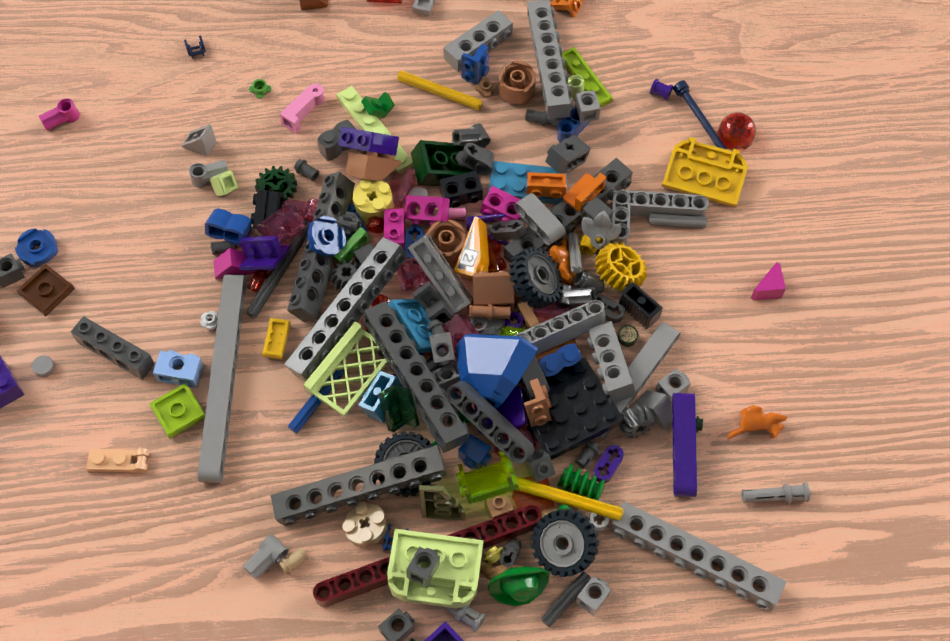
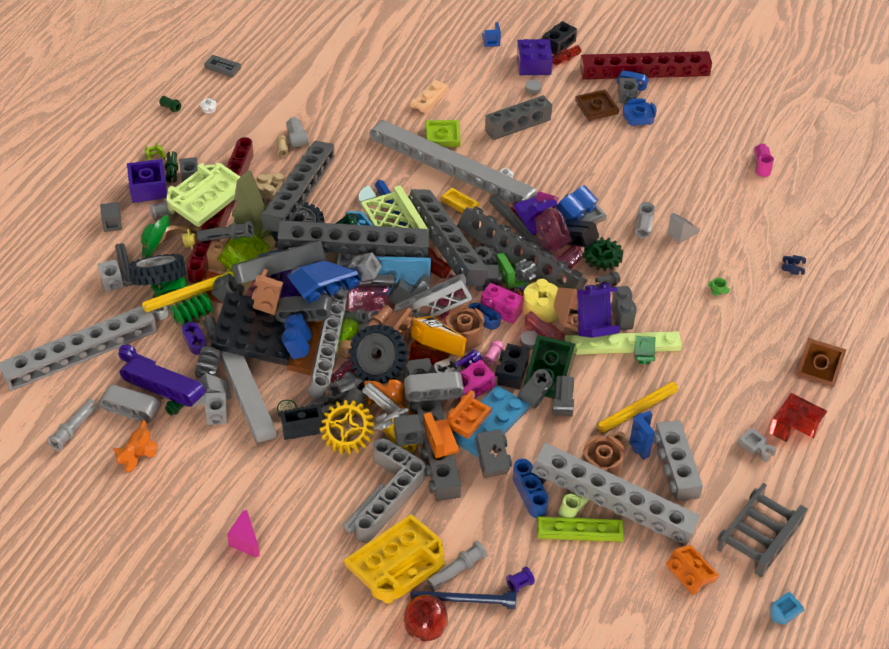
camera: 120 degrees right, 15 degrees down
(170, 360) = (475, 142): light blue brick -> none
(223, 183) = (627, 225): yellowish green slope -> none
(301, 106) = (678, 302): bright pink leg -> none
(318, 242) = (513, 234): plate -> none
(318, 430) = (366, 194): none -> light aqua tile
(423, 575) = (205, 175): dark grey brick -> none
(427, 206) = (505, 327): dark pink brick -> none
(478, 488) = (234, 231): none -> dark grey pin
(510, 552) = (179, 240): dark grey pin -> none
(587, 106) = (530, 484): light grey brick -> none
(612, 362) = (266, 370): light grey brick -> none
(670, 504) = (127, 352): none -> dark purple plate
(671, 130) = (464, 560): none -> light grey pin
(721, 462) = (129, 403): none -> light grey beam

